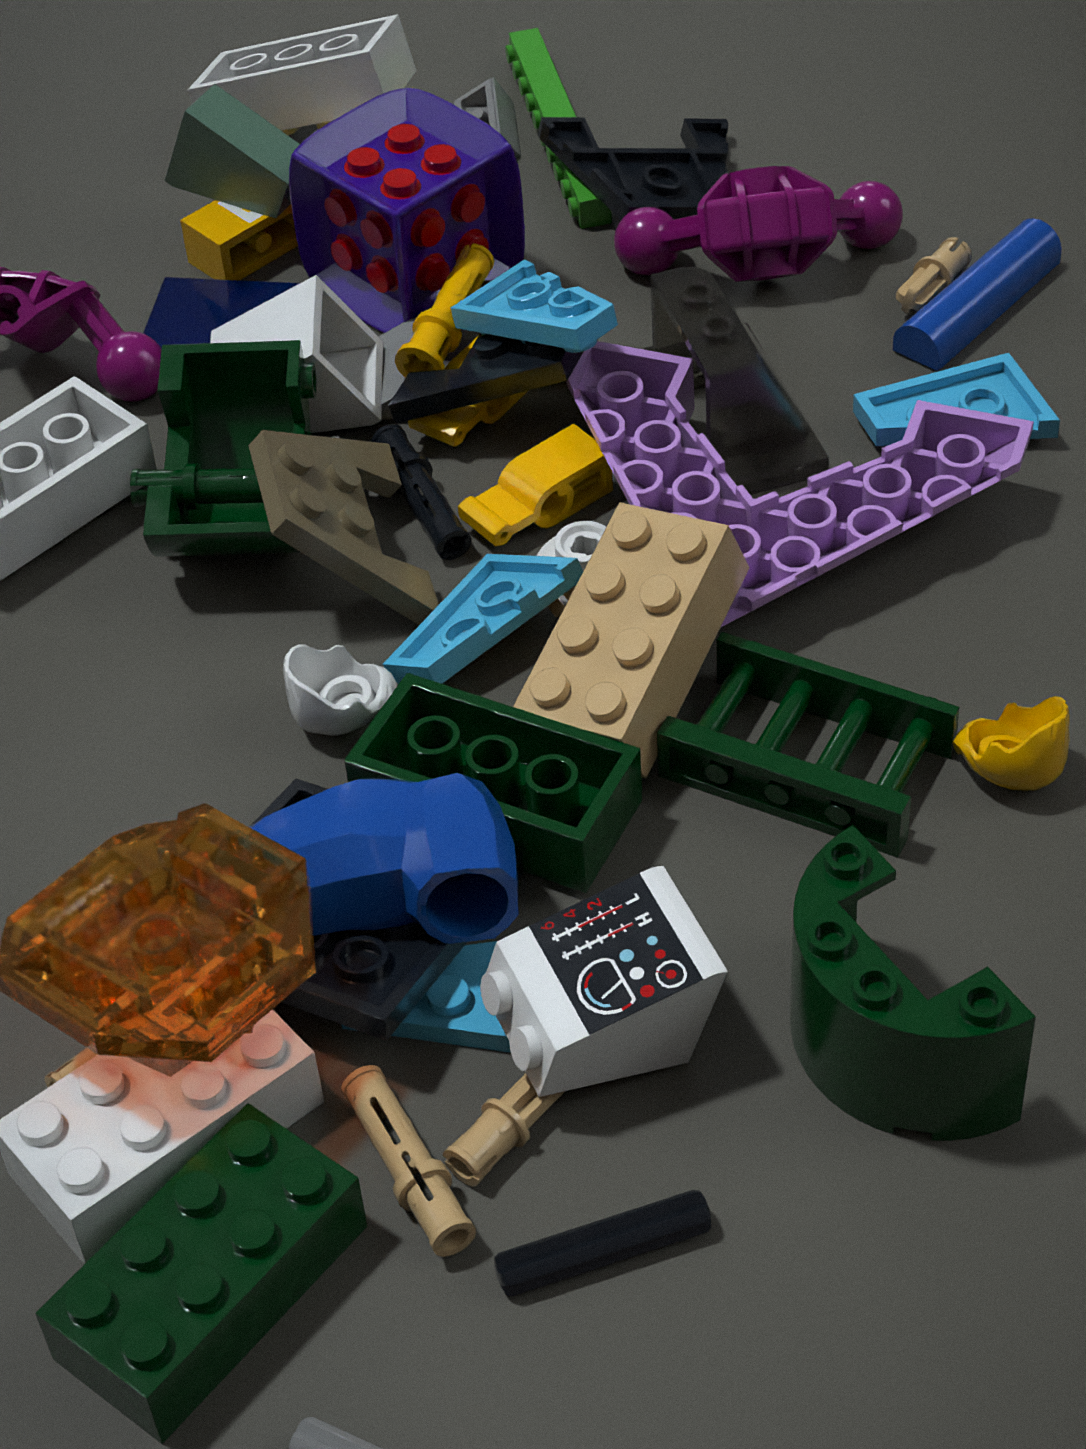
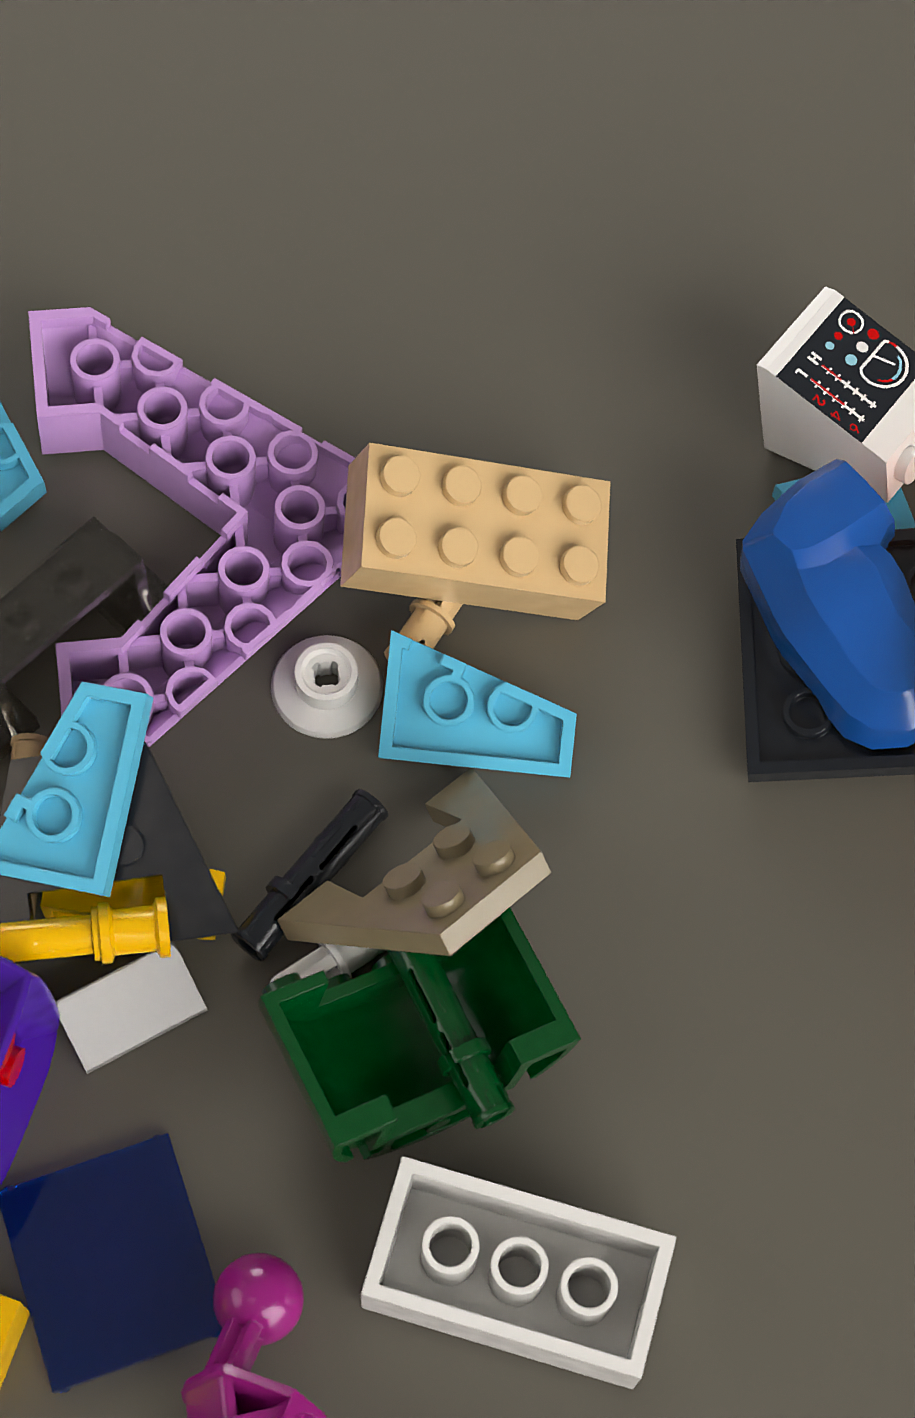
camera: 125 degrees left, 20 degrees up
(331, 337) = (209, 1088): white slope -> none
(332, 690) = (633, 788): white hair -> none
(541, 487) = (262, 755): yellow piece -> none
(556, 784) = (676, 597): dark green brick -> none
(792, 787) = (532, 365): dark green fence -> none
(874, 1037) = (732, 265): dark green cylinder -> none
(1021, 748) = (411, 233): yellow hair -> none

